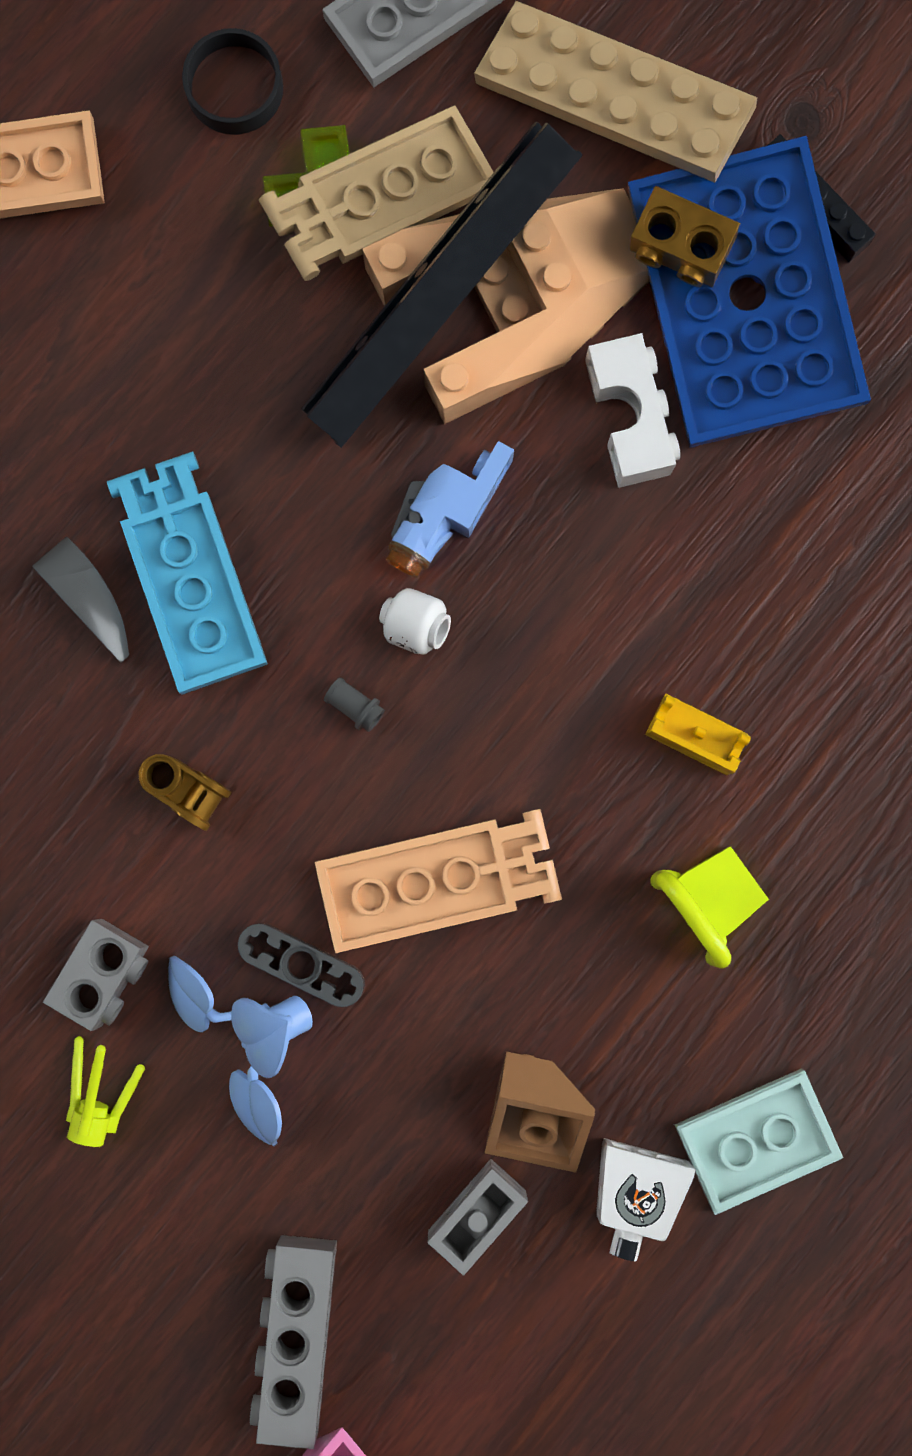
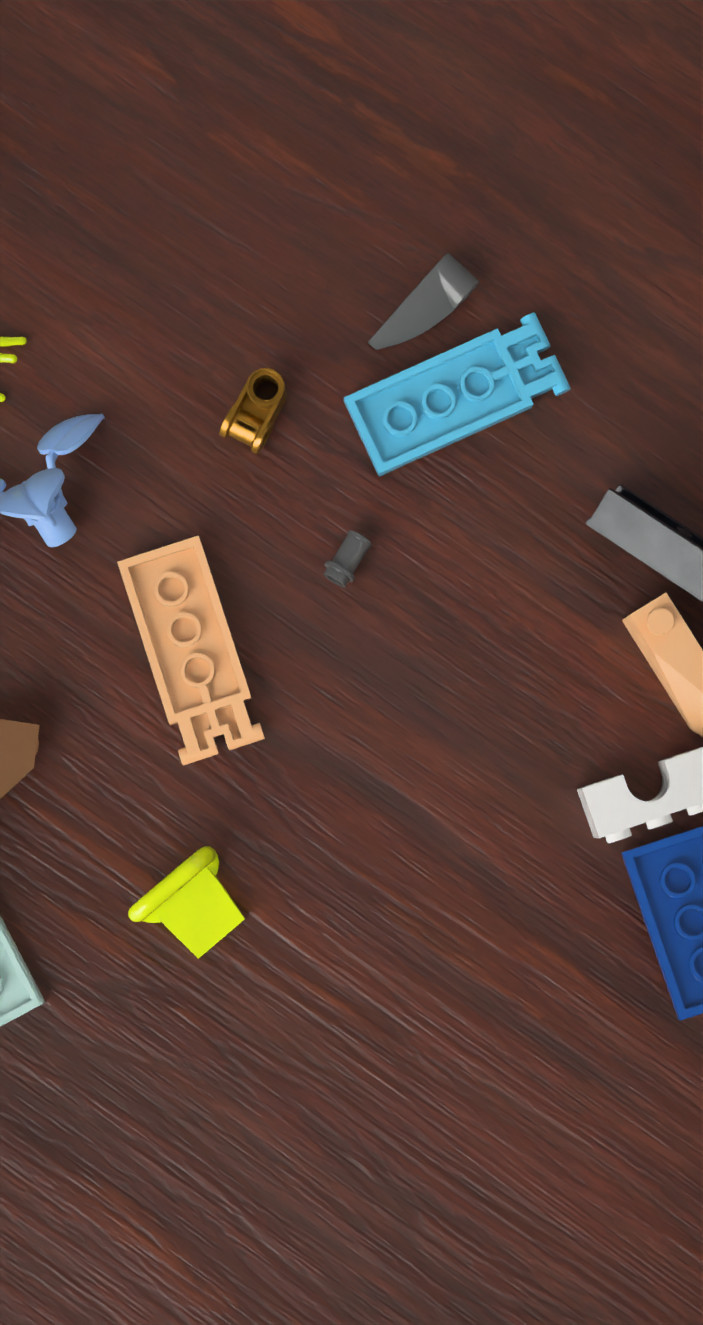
camera: 80 degrees right, 0 degrees up
(88, 967) = (87, 342): light grey brick -> none
(265, 959) = (126, 508): dark grey beam -> none
(415, 621) = (429, 607): white head -> none
(441, 504) = (542, 621): light blue plate -> none
(698, 735) = (347, 881): yellow hinge -> none

